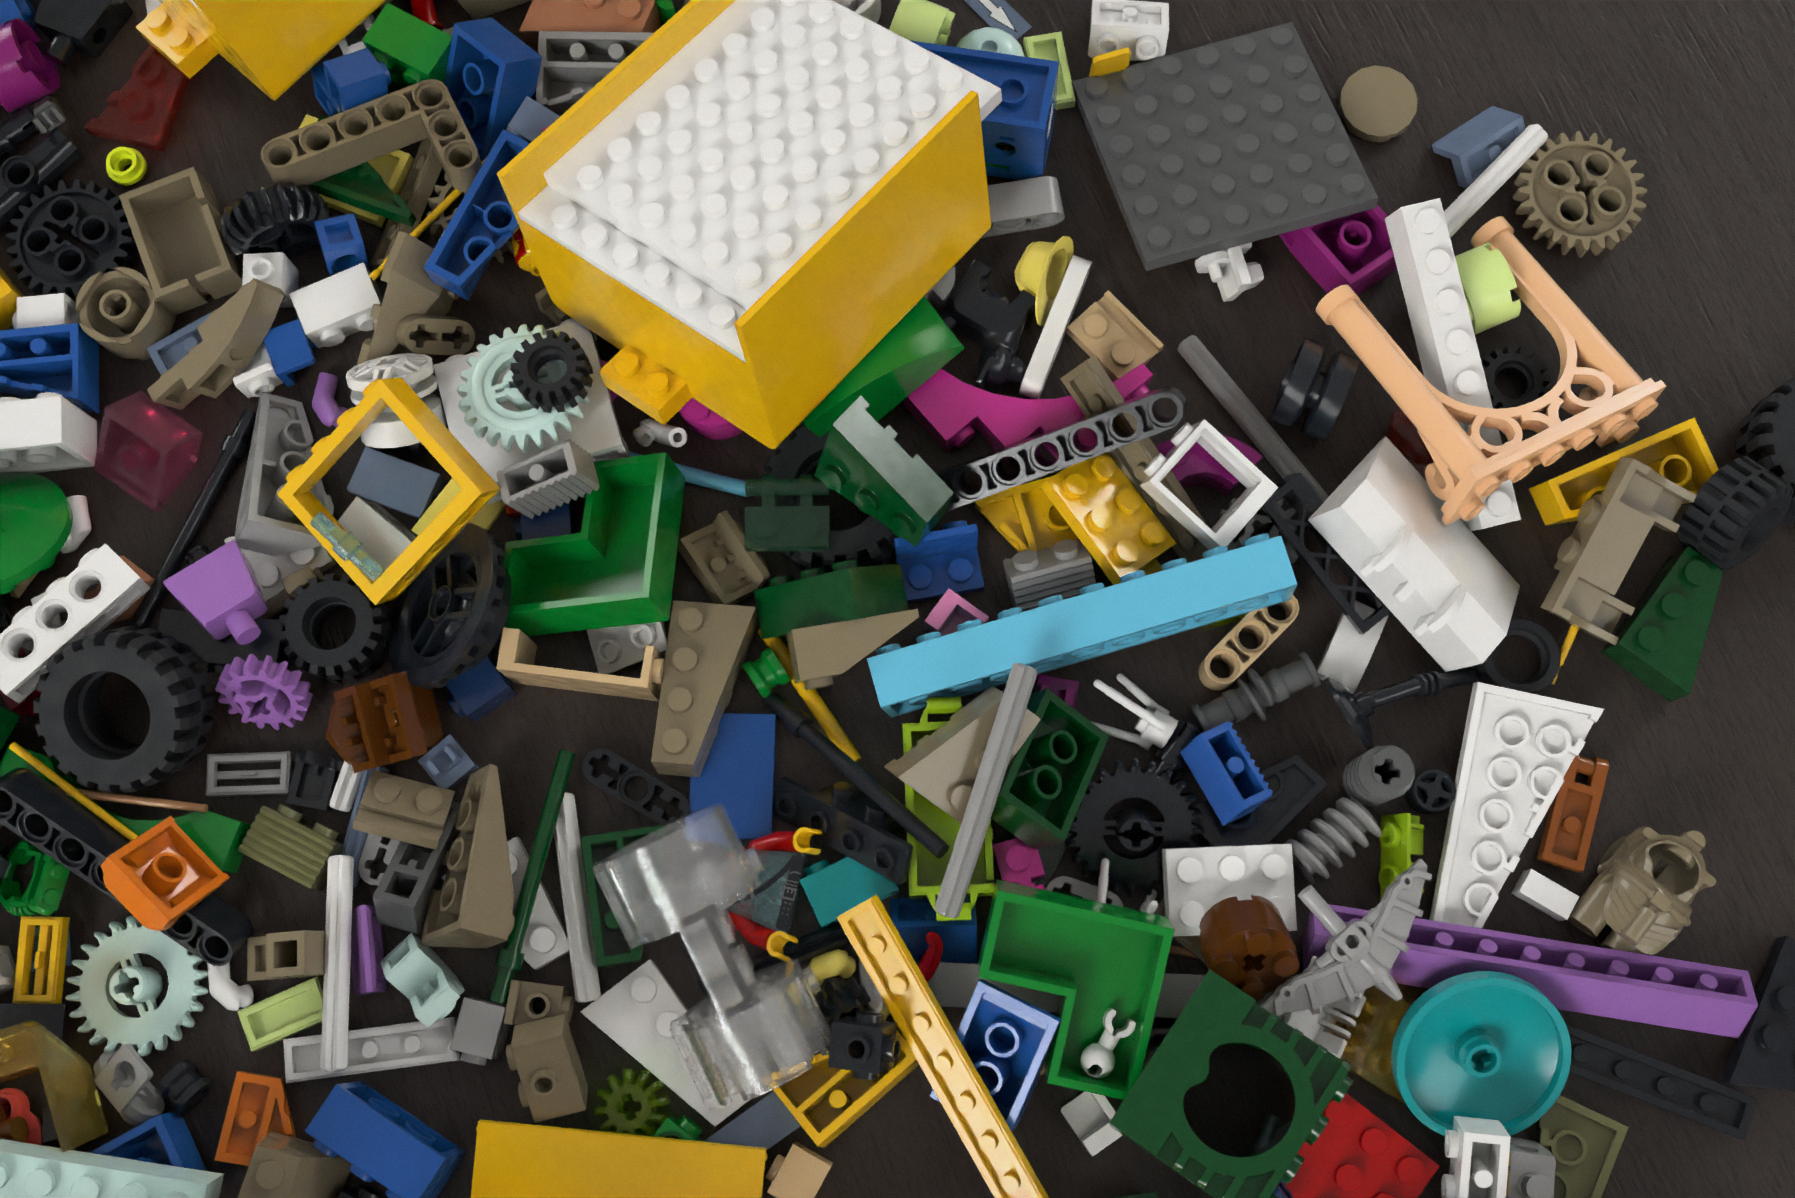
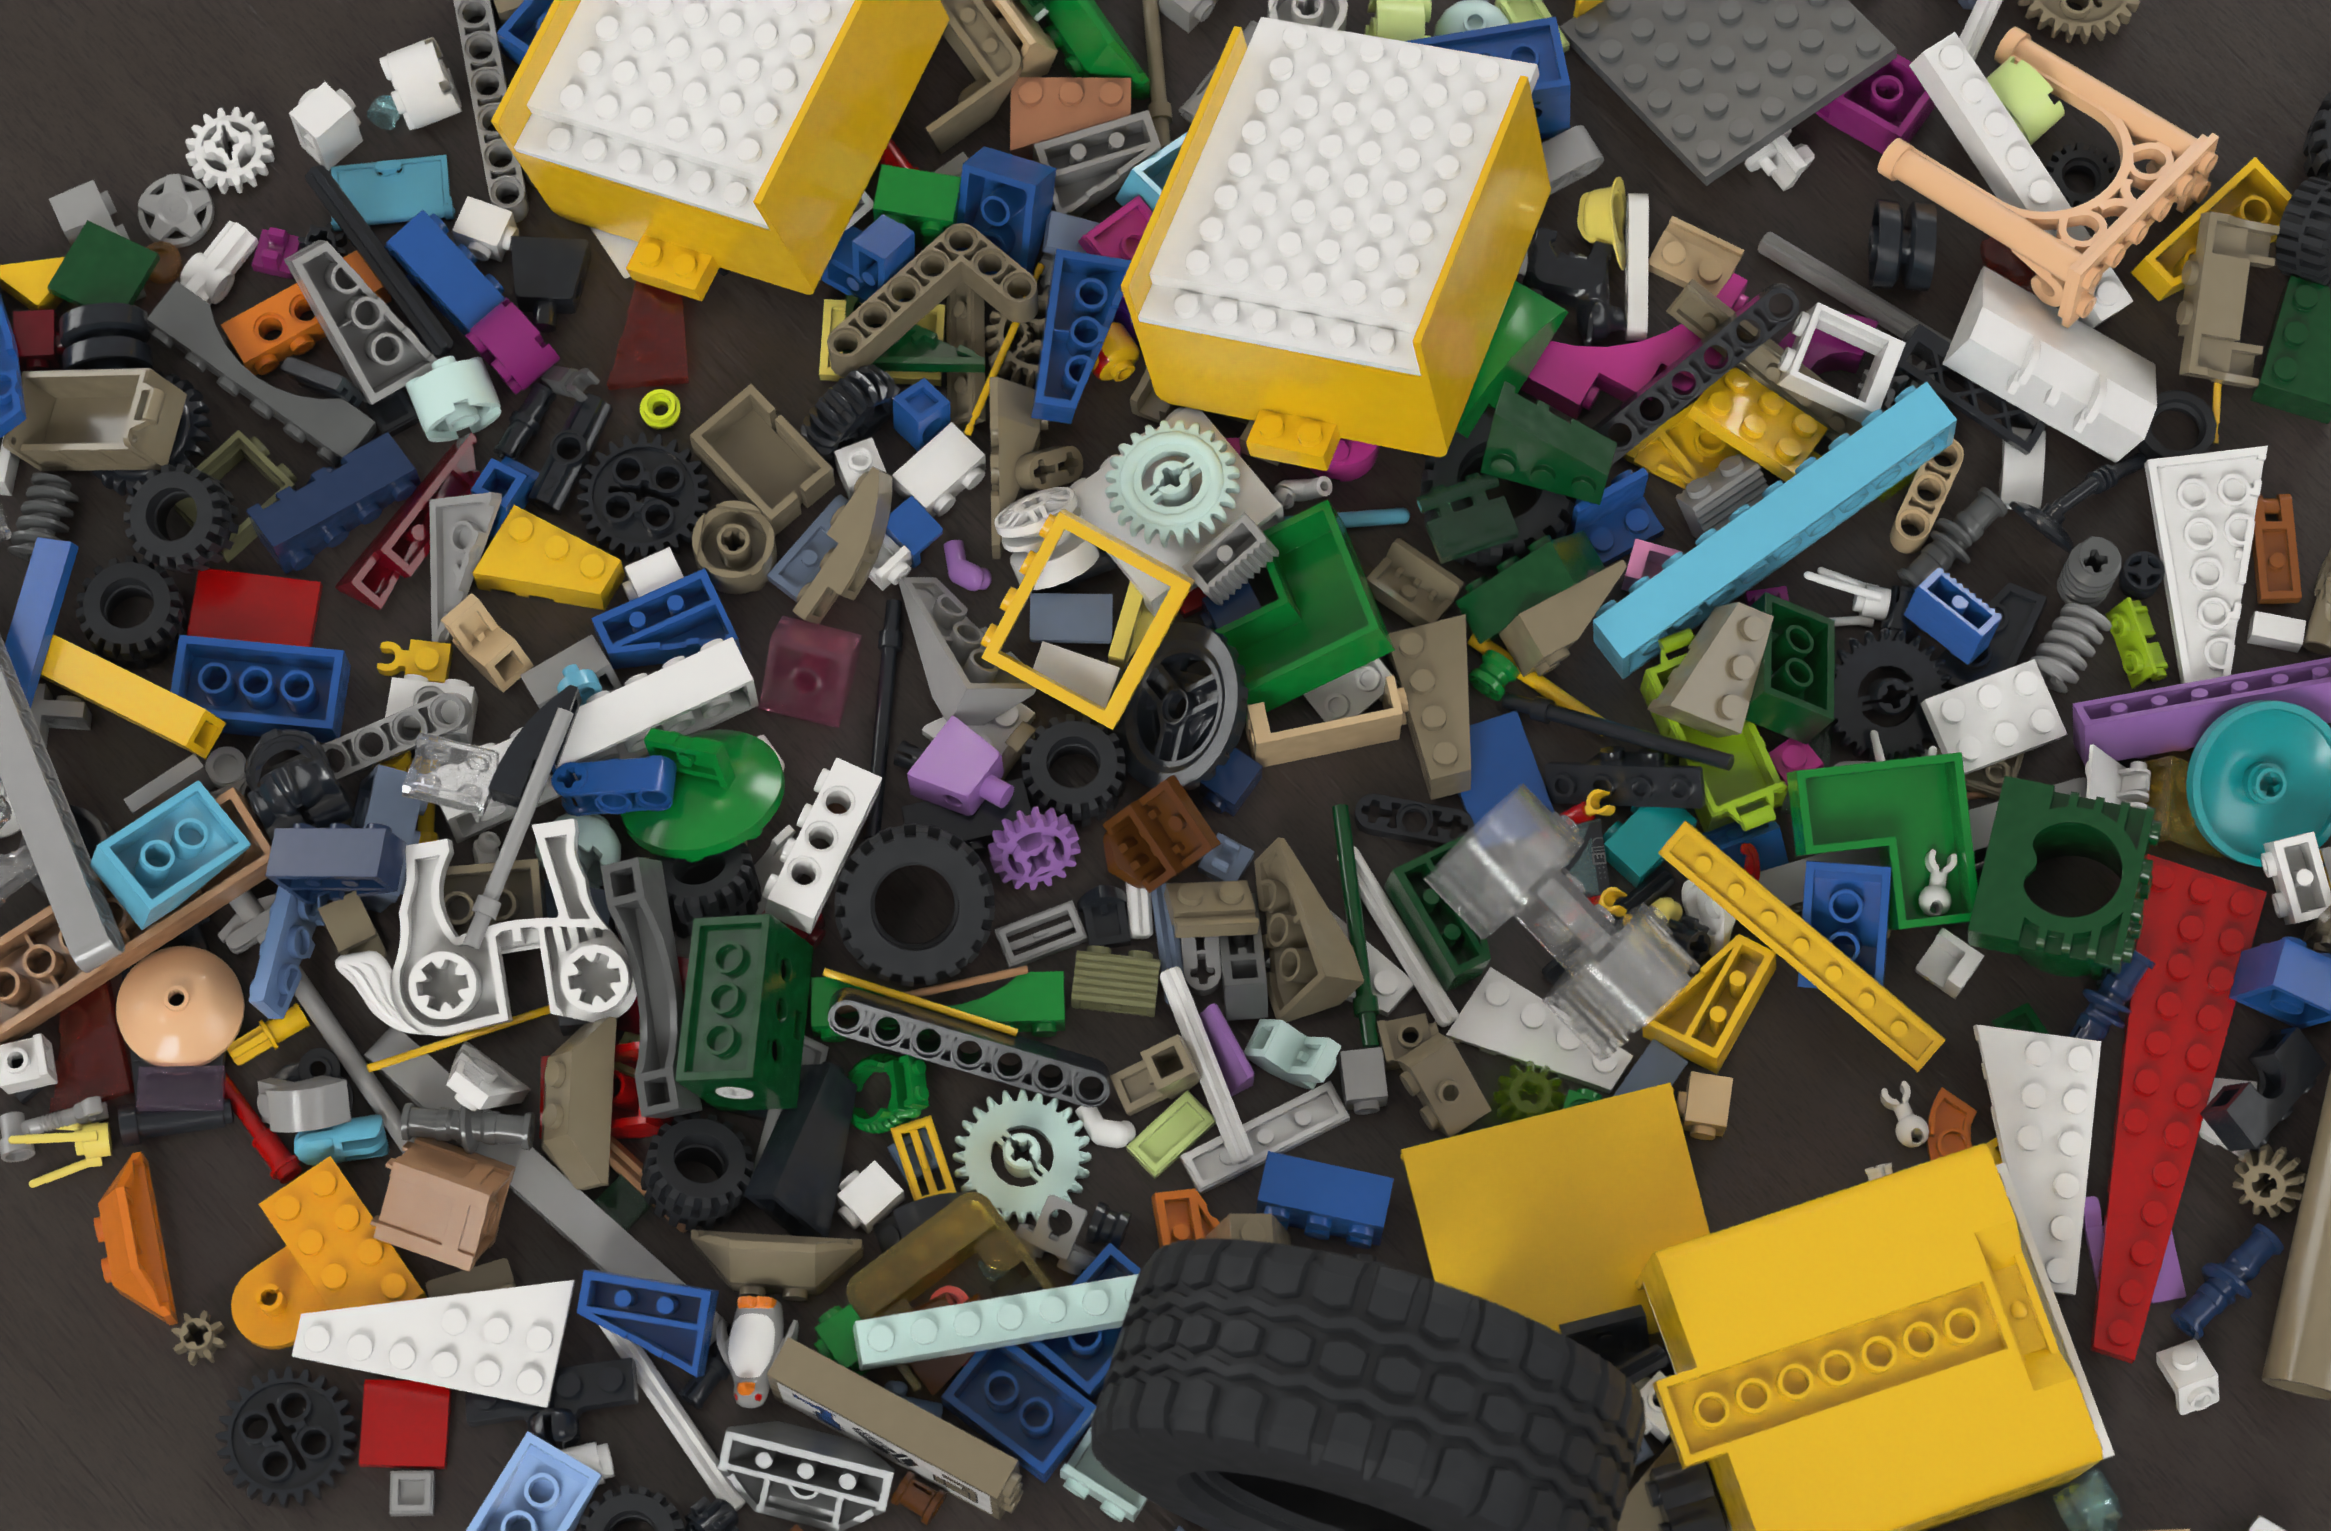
camera: 25 degrees left, 5 degrees down
(161, 875) = (1026, 1032): orange slope -> none
(347, 546) = (1072, 681): clear light blue bar -> none
(539, 354) = (1199, 434): black tyre -> none
(864, 1045) = (1712, 948): black brick -> none
(985, 790) = (1751, 692): light grey axle -> none
(1248, 945) = (2029, 749): reddish brown brick -> none
(1357, 951) = (2128, 724): light grey bar -> none

